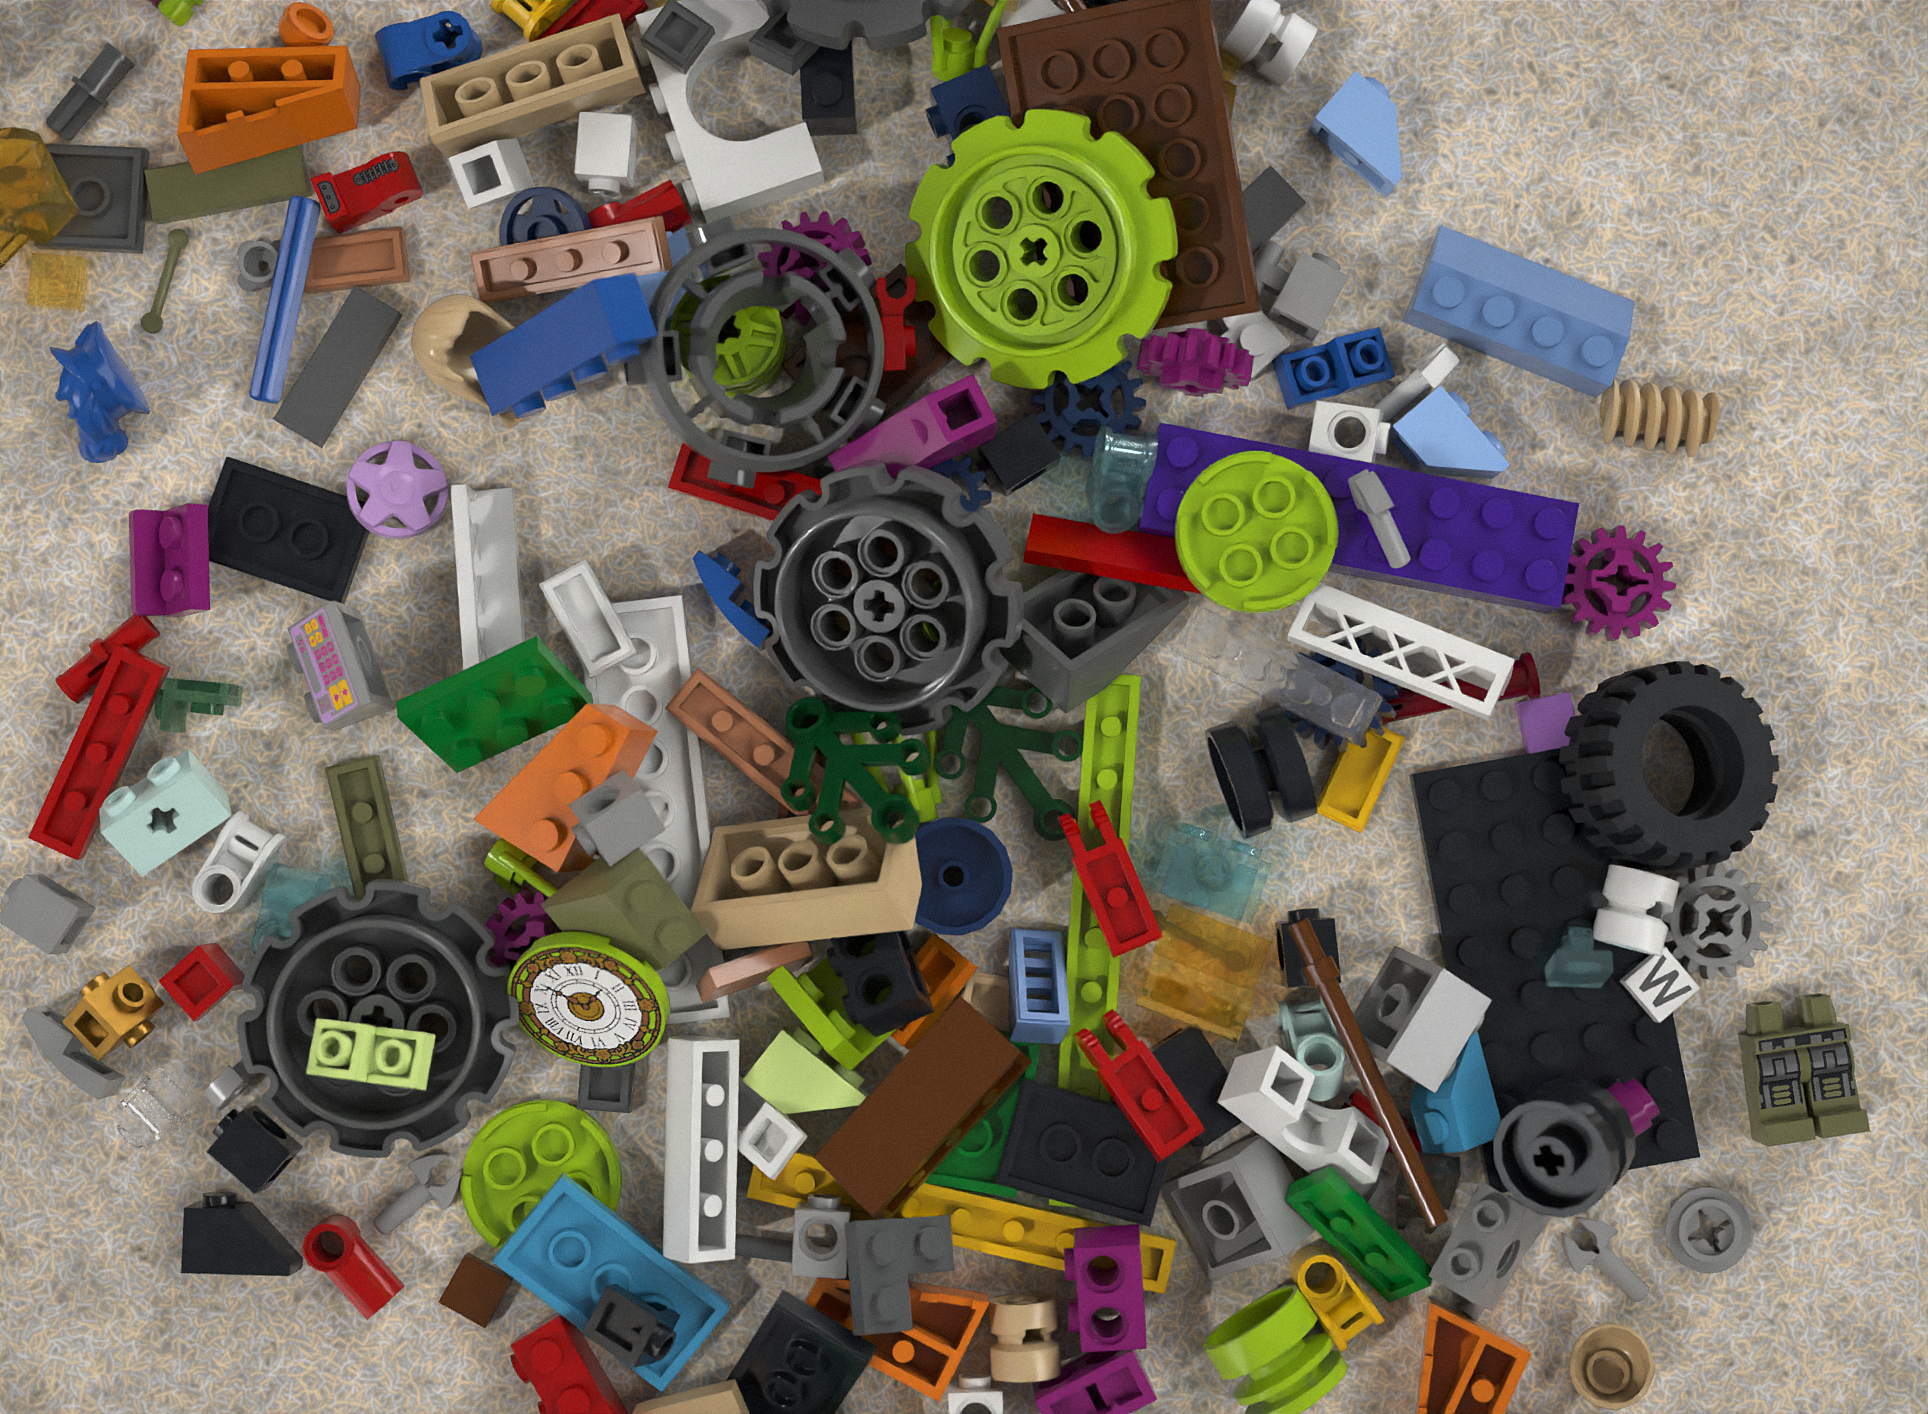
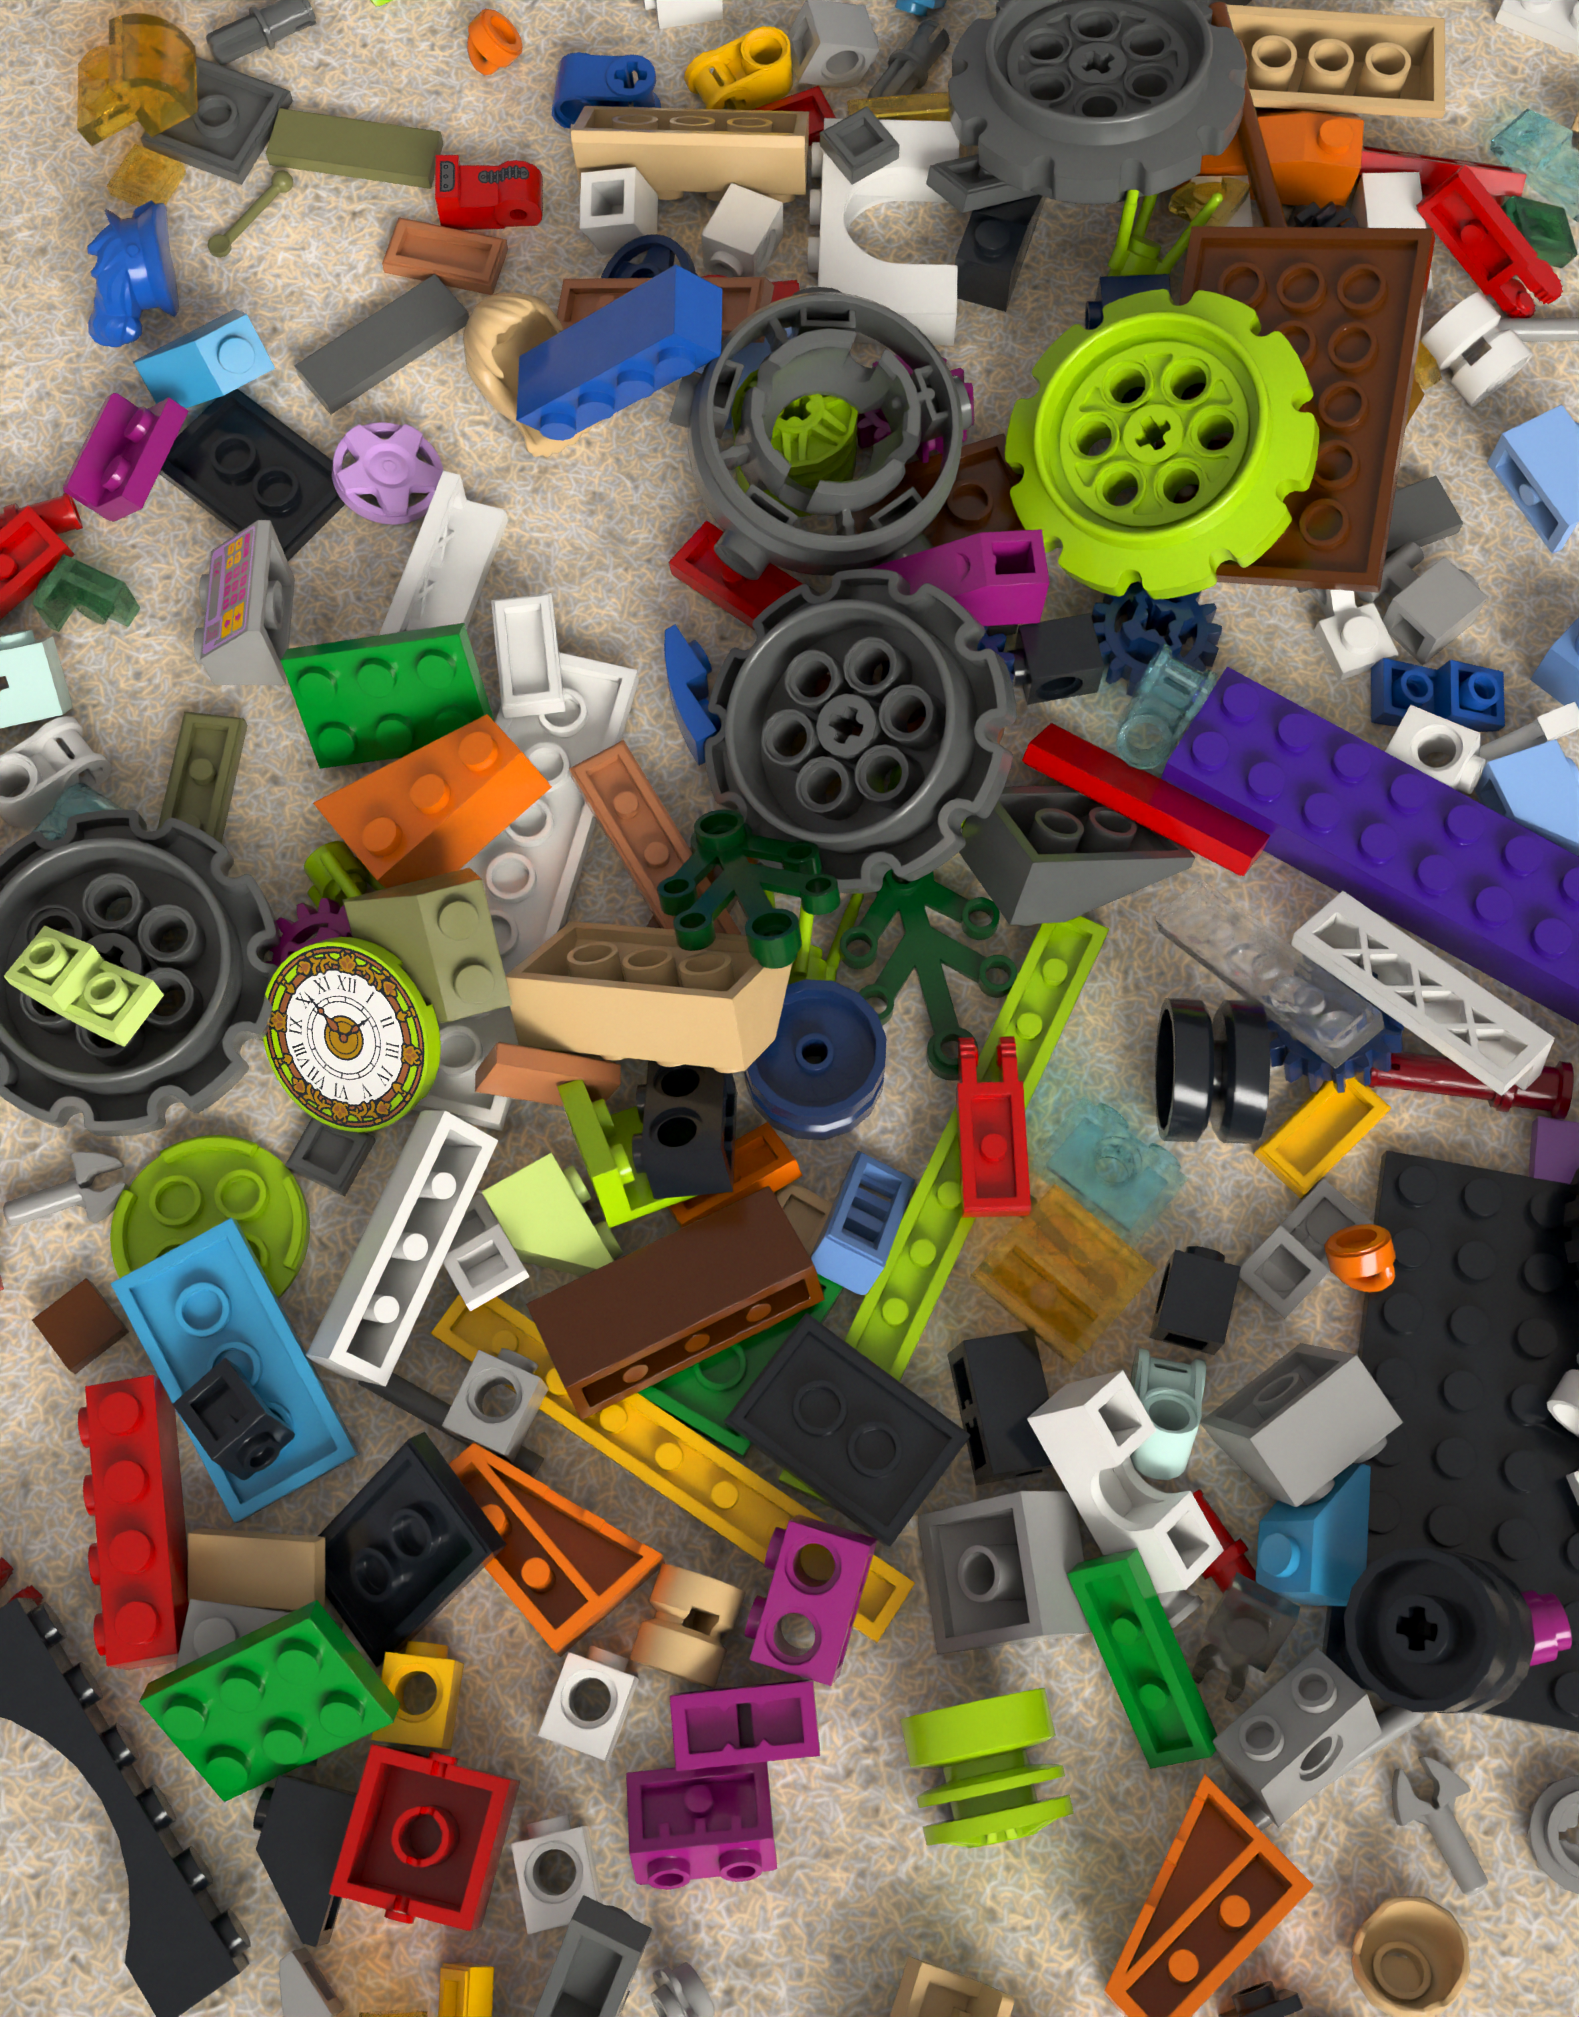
camera: 25 degrees right, 15 degrees down
(199, 450) = (206, 361): none -> dark azure slope
(250, 257) = (350, 215): light grey plate -> none
(263, 101) = (423, 76): orange wedge -> none
(285, 299) = (358, 261): axle -> none
(614, 818) = (463, 836): light grey brick -> none
(879, 1264) = (561, 1446): dark grey plate -> none
(898, 338) = (972, 489): red plate -> none
(1141, 1089) = (941, 1374): red hinge -> none
(1195, 362) = (1287, 622): magenta gear -> none
(1256, 532) = (1296, 807): lime tile -> none
(1322, 973) = (1206, 1320): reddish brown bar -> none
(1337, 1301) = (1088, 1735): yellow piece -> none
(1374, 874) = (1294, 1254): none -> light grey slope
(1375, 502) = (1441, 806): light grey bar -> none
(1420, 870) = (1359, 1253): none -> orange tile
(1578, 963) = (1523, 1428): clear light blue tile -> none

